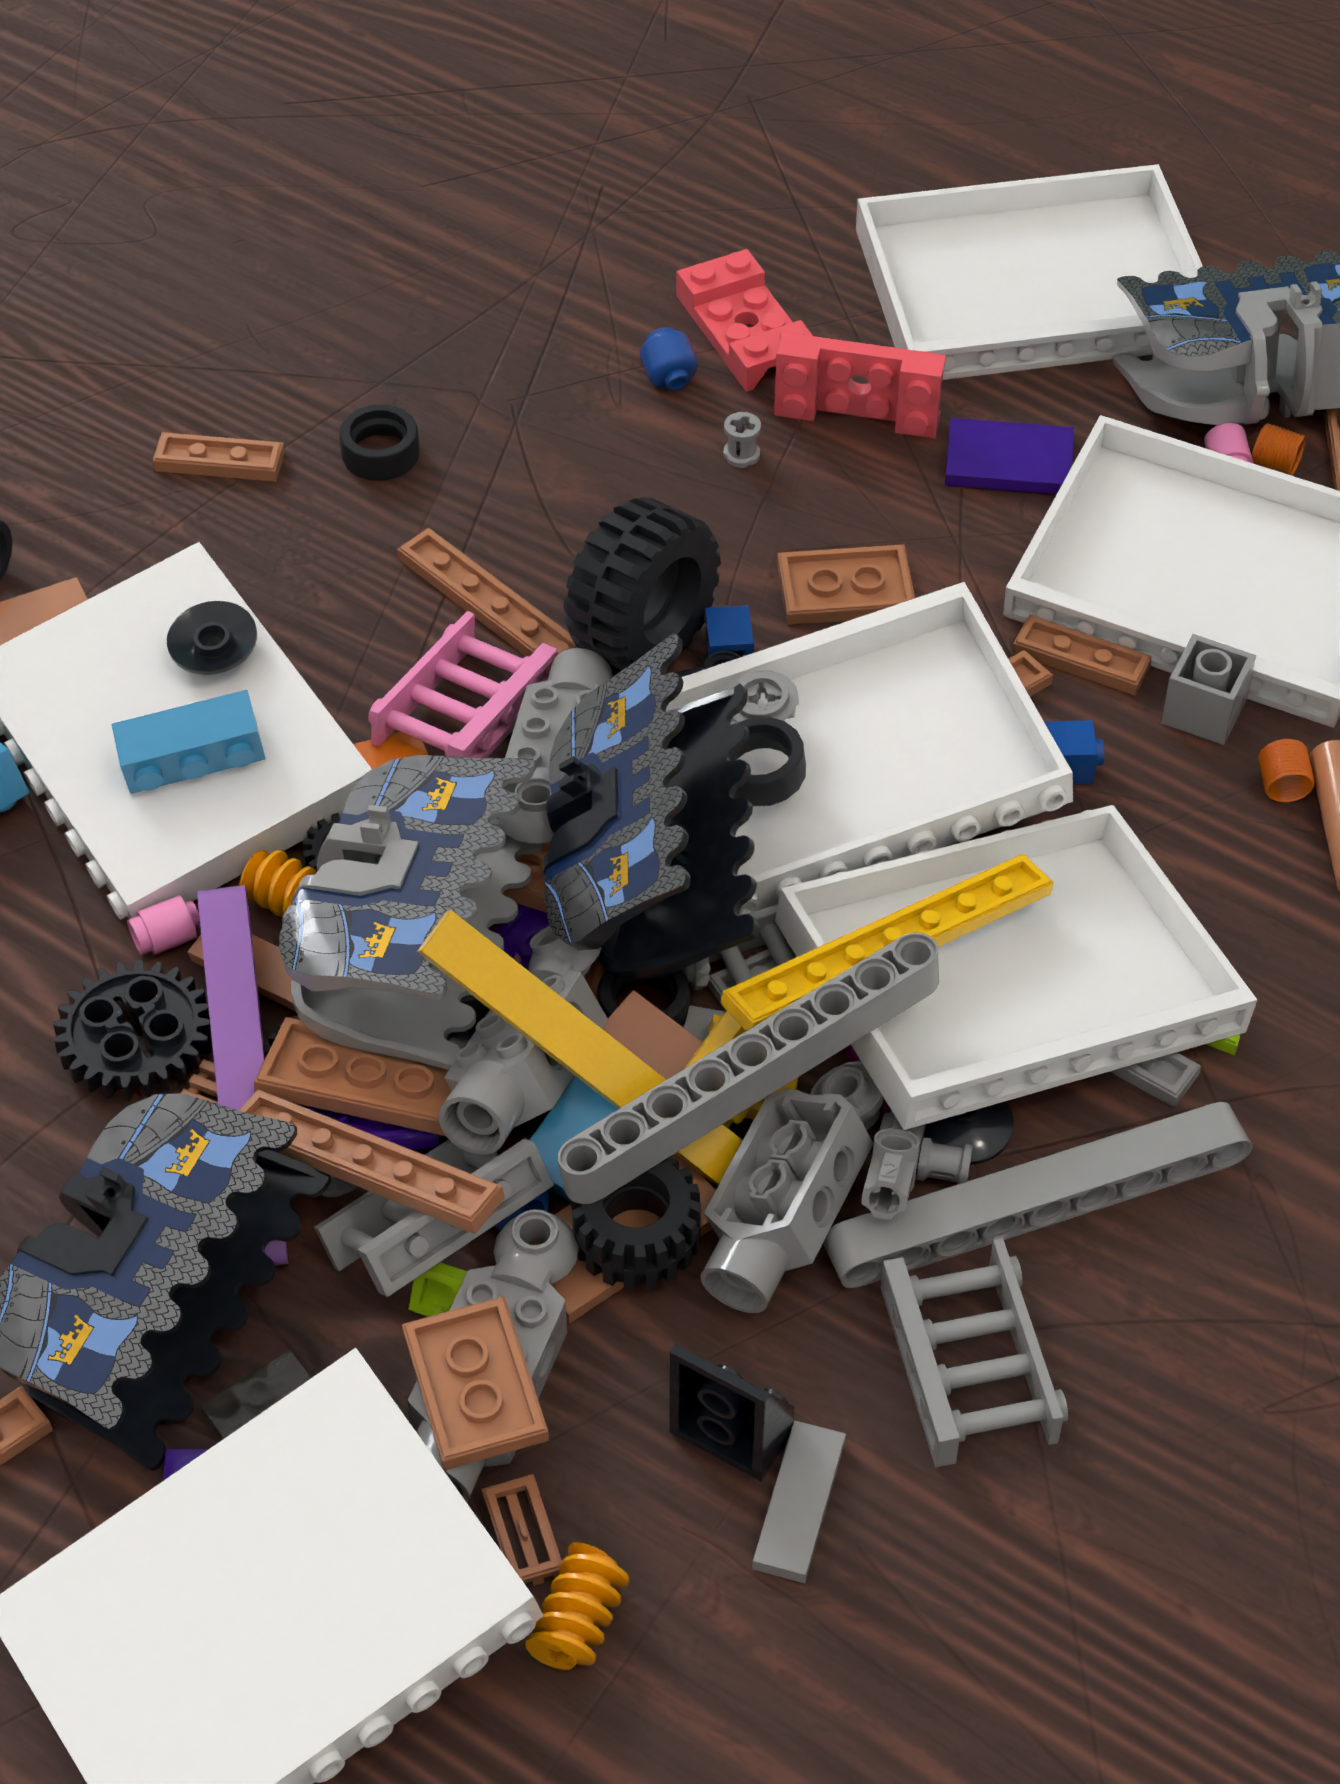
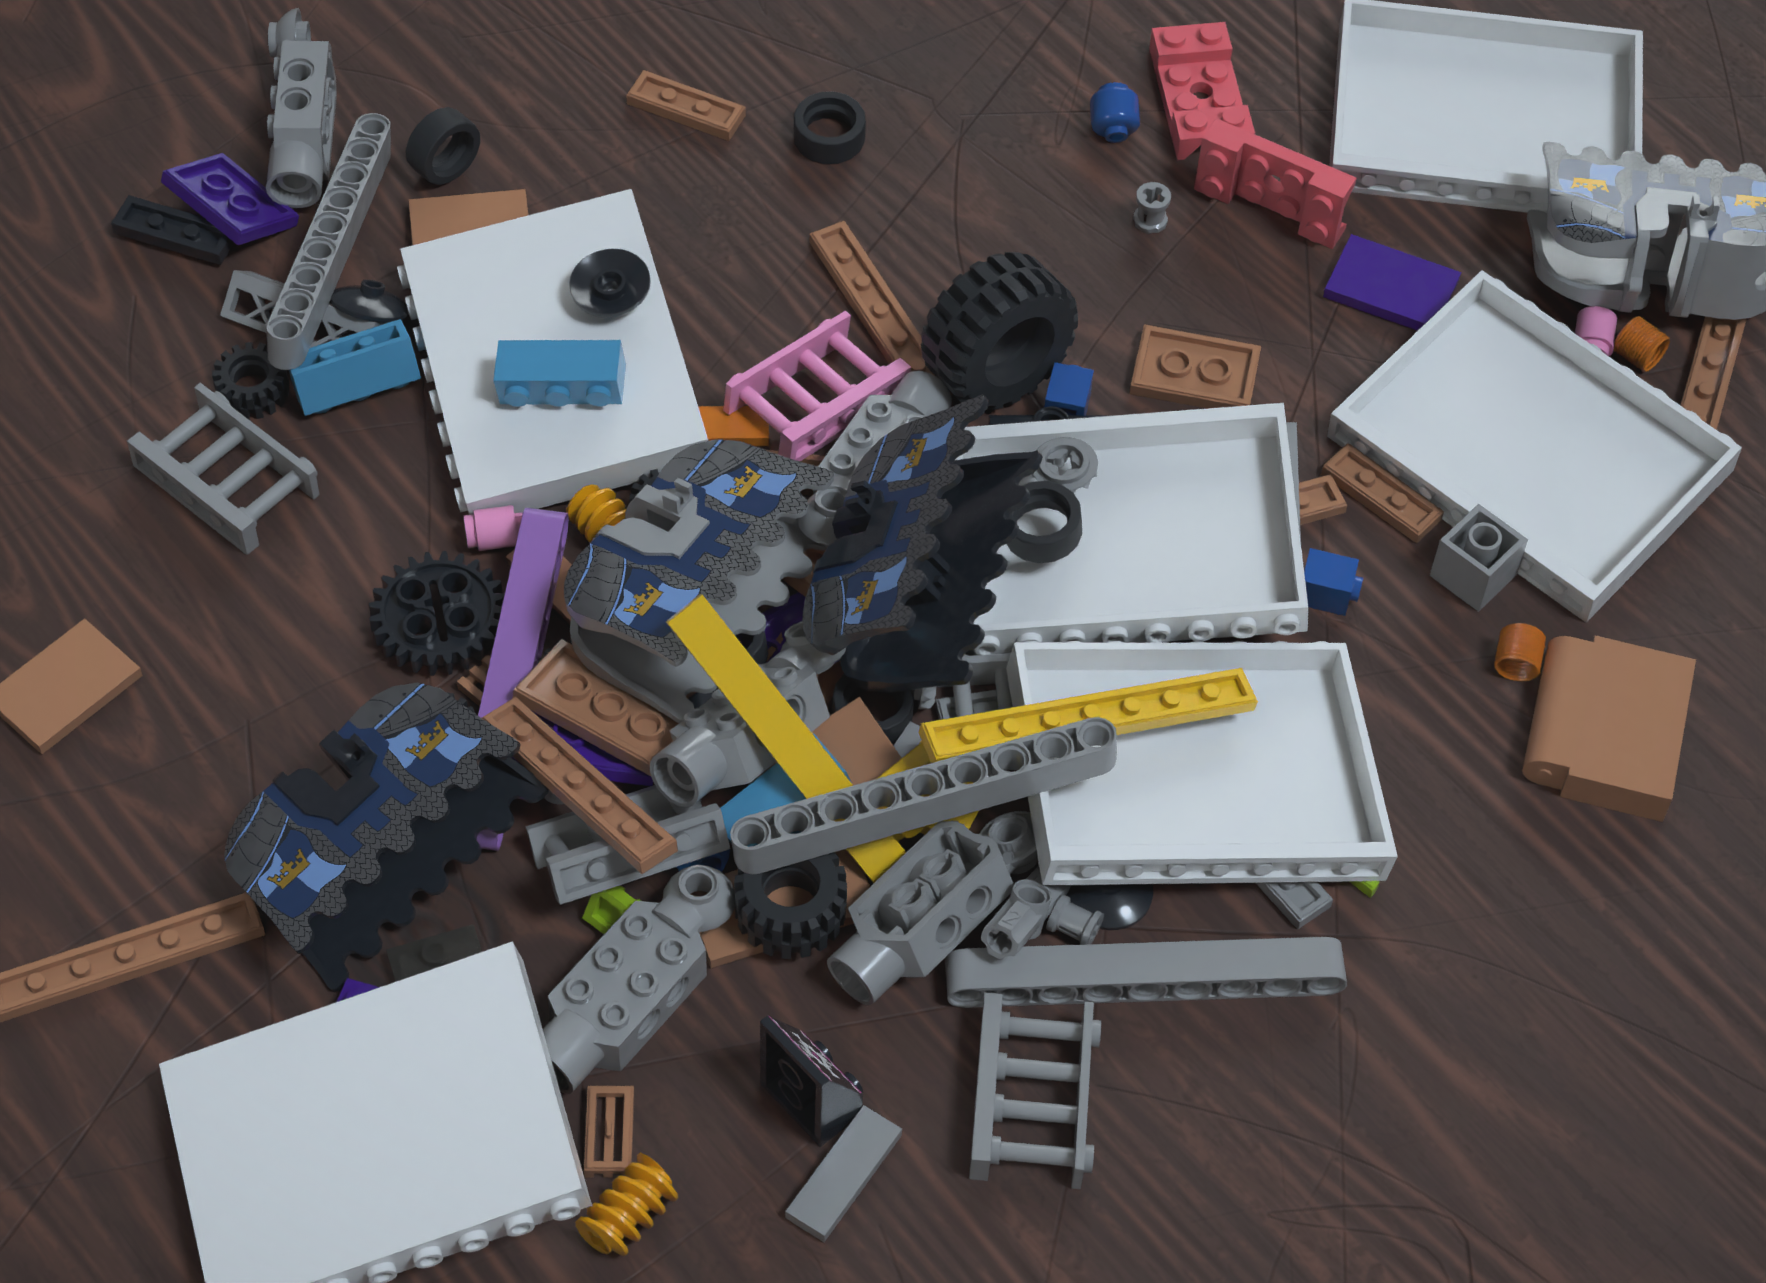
camera: 15 degrees right, 5 degrees up
(474, 1383) = (604, 997): nougat tile -> none

